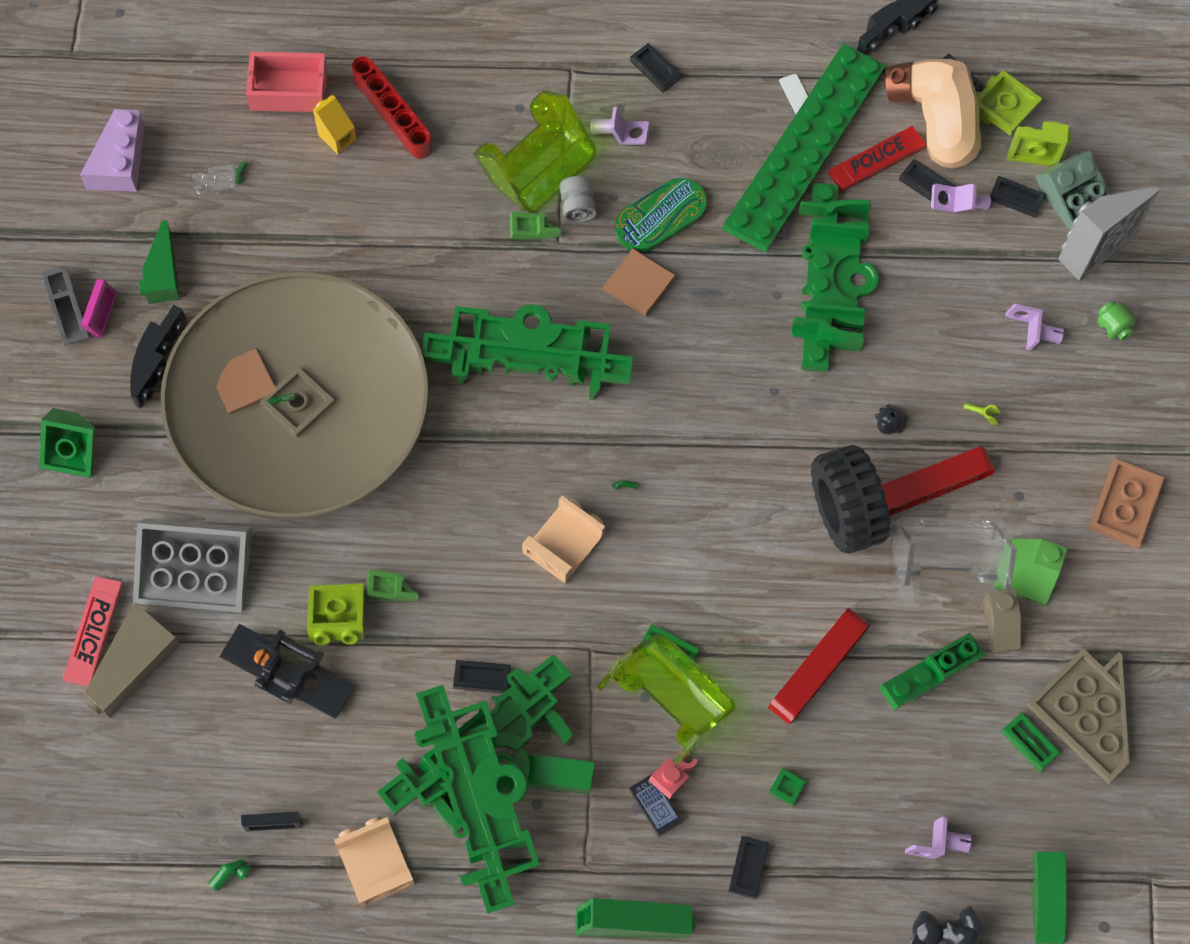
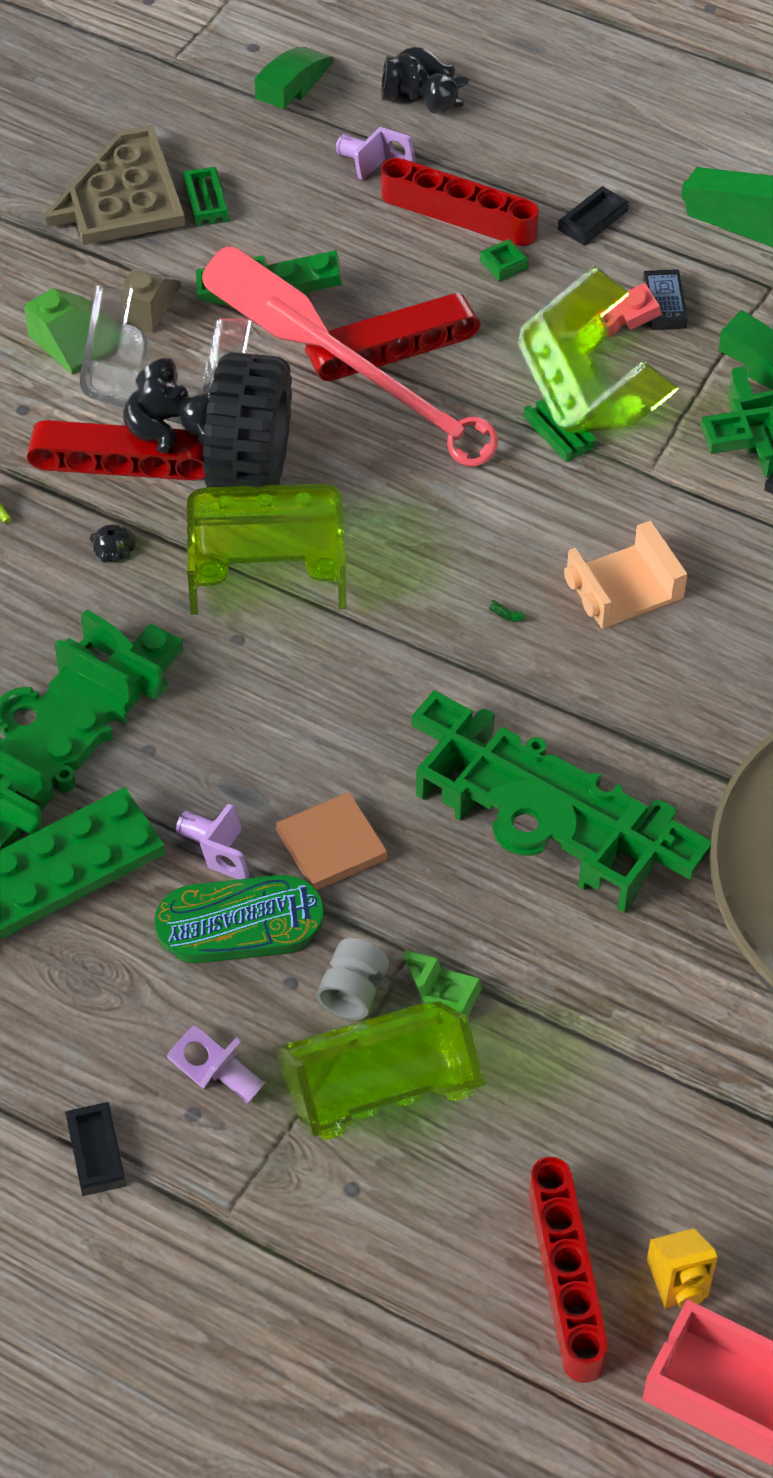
camera: 150 degrees left, 15 degrees down
(701, 249) = (215, 840): none -> lavender bracket
(827, 433) = (265, 526): none -> clear neon green windscreen
(859, 812) = (459, 201): none -> red beam
(884, 620) = (292, 317): none -> coral piece
(921, 498) = (162, 399): none -> black animal

